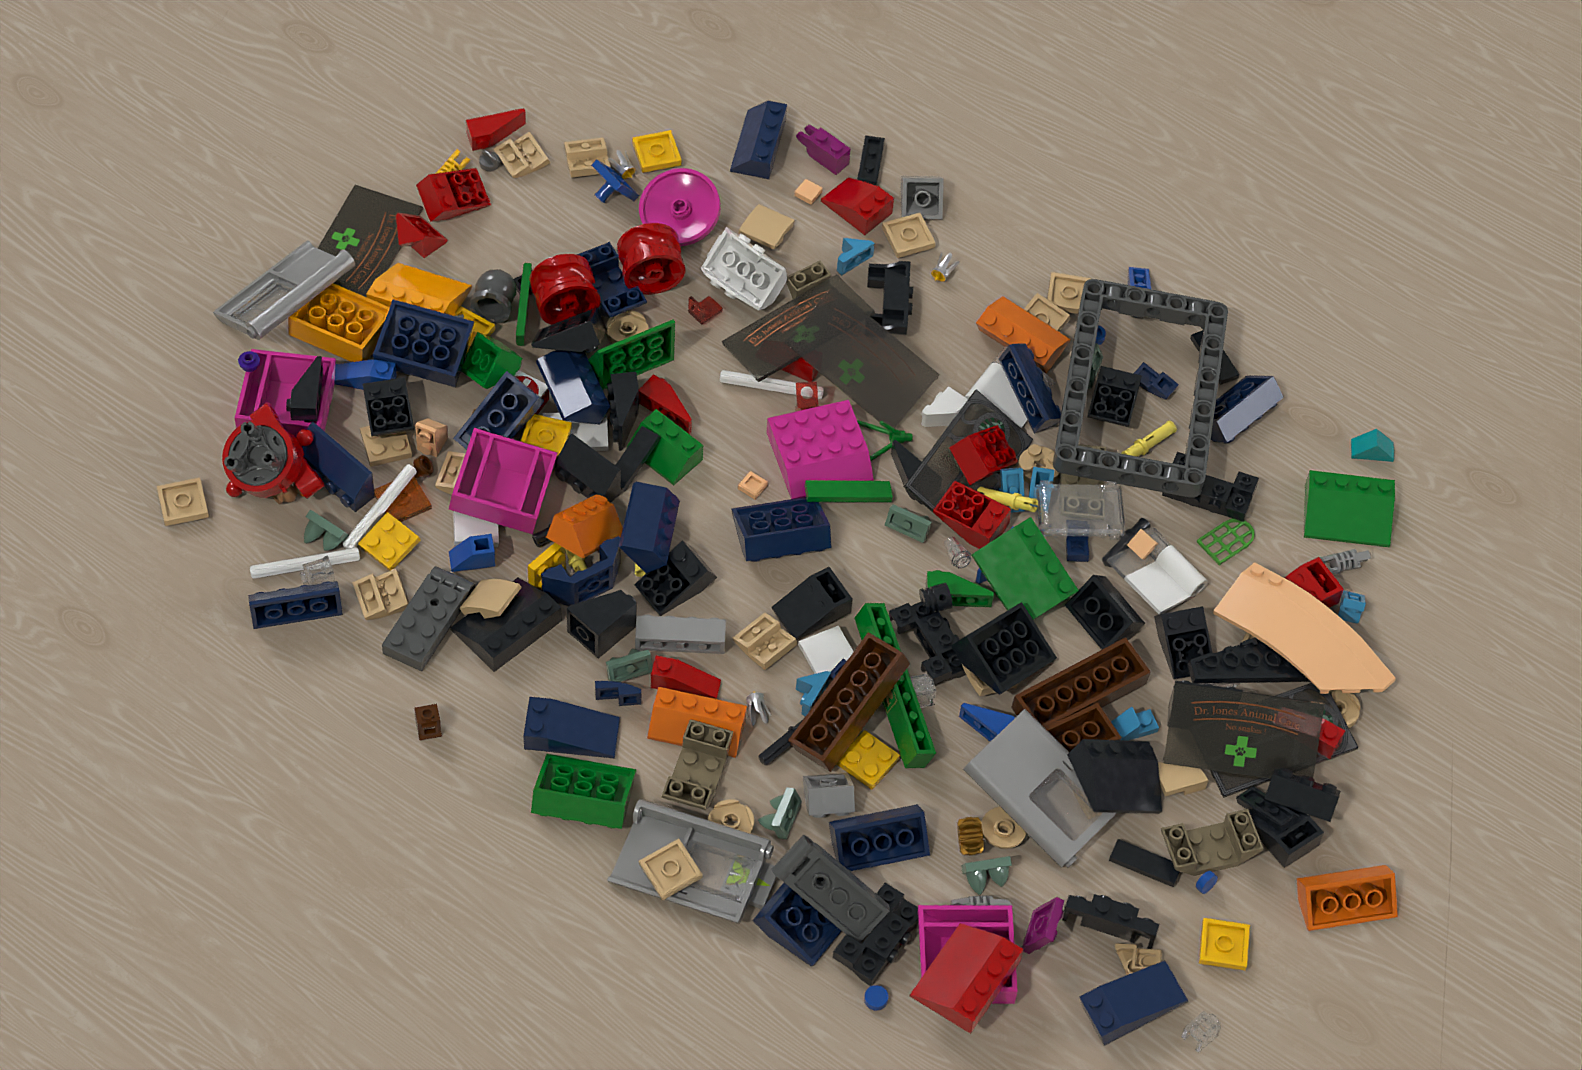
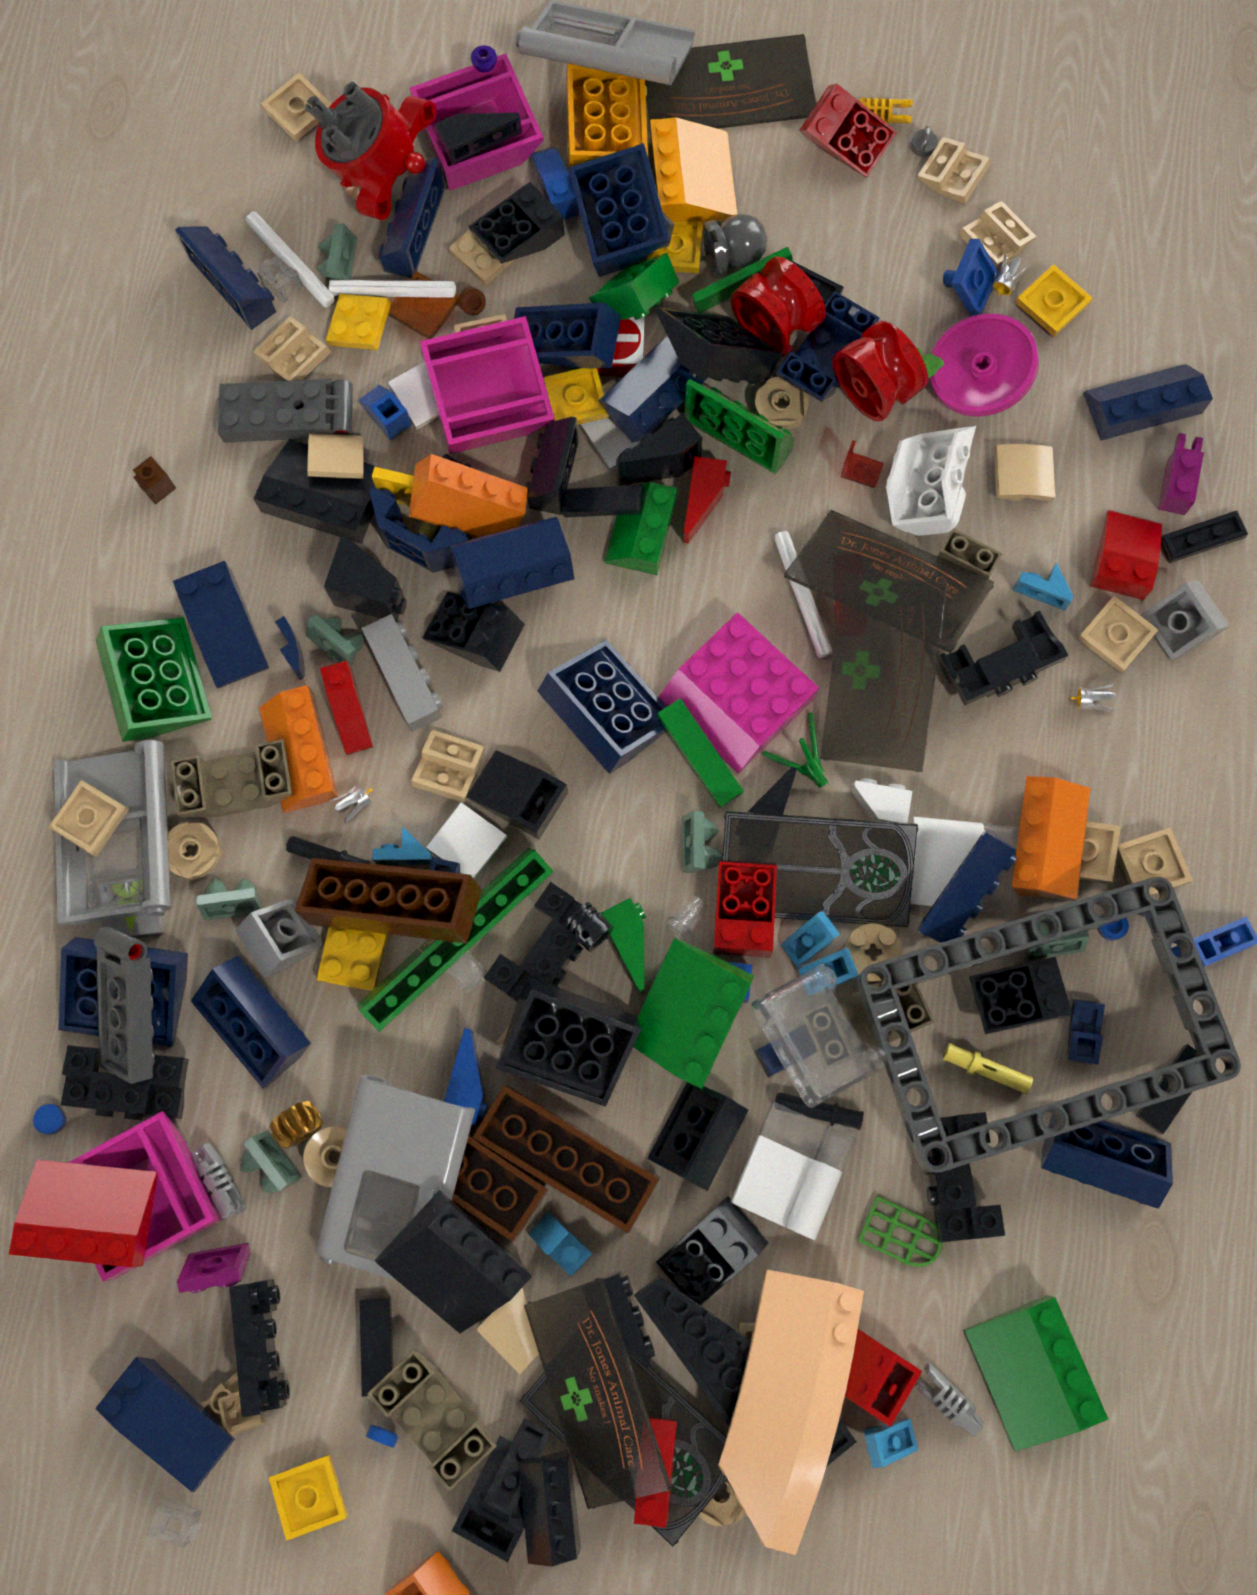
camera: 70 degrees right, 20 degrees up
(418, 234) = (775, 127): red slope -> none
(430, 436) = (509, 284): light nougat slope -> none
(491, 129) = (968, 120): red slope -> none
(752, 485) = (651, 645): light nougat tile -> none
(803, 403) = (787, 645): clear red bracket -> none
(808, 191) = (1109, 491): light nougat tile -> none
(983, 454) = (833, 881): red slope -> none
(1015, 501) = (783, 950): light yellow pin -> none
(1142, 544) = (819, 1134): light nougat tile -> none
(1372, 446) = (1156, 1360): teal slope -> none

